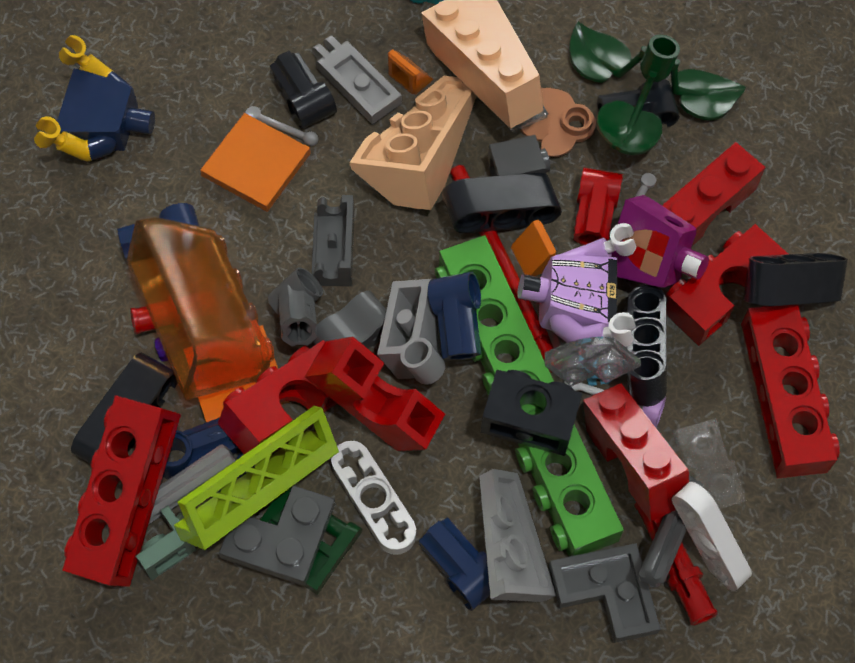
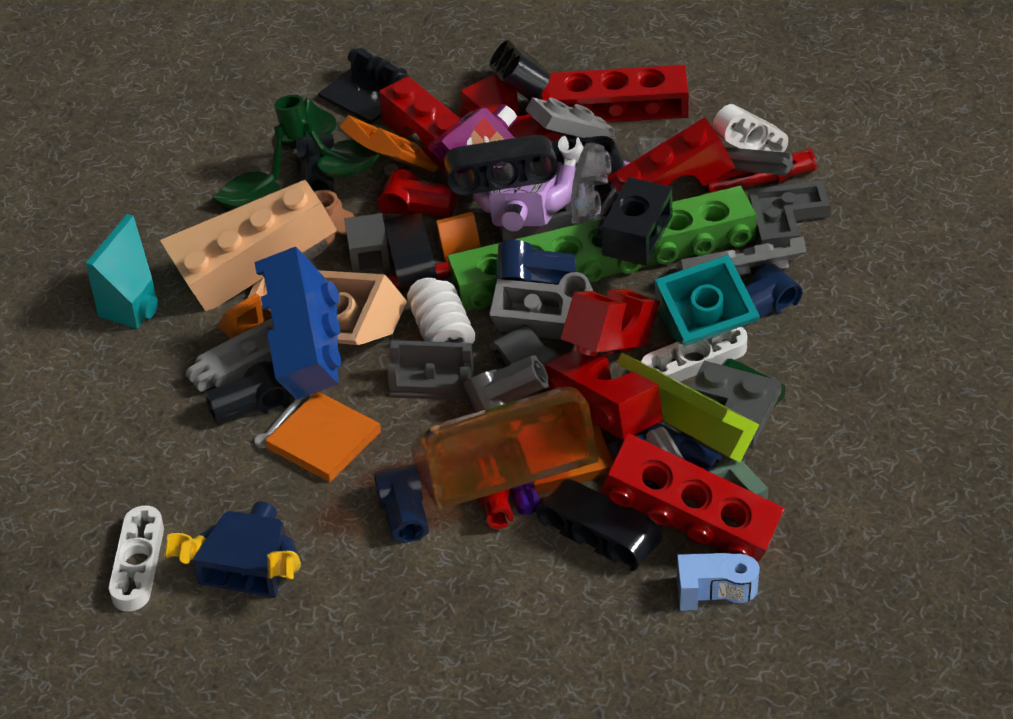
camera: 80 degrees left, 20 degrees down
(49, 525) = (716, 578): none -> light blue leg
(96, 24) = (129, 545): none -> white beam
(359, 110) = (303, 323): none -> blue wedge
(404, 241) = (439, 312): none -> white piece
(417, 495) = (704, 301): none -> teal slope
(585, 259) = (517, 173): none -> black beam
(656, 158) = (388, 144): none -> orange slope
(718, 340) = (568, 120): none -> light grey hinge
(778, 141) = (360, 86): none -> black hinge

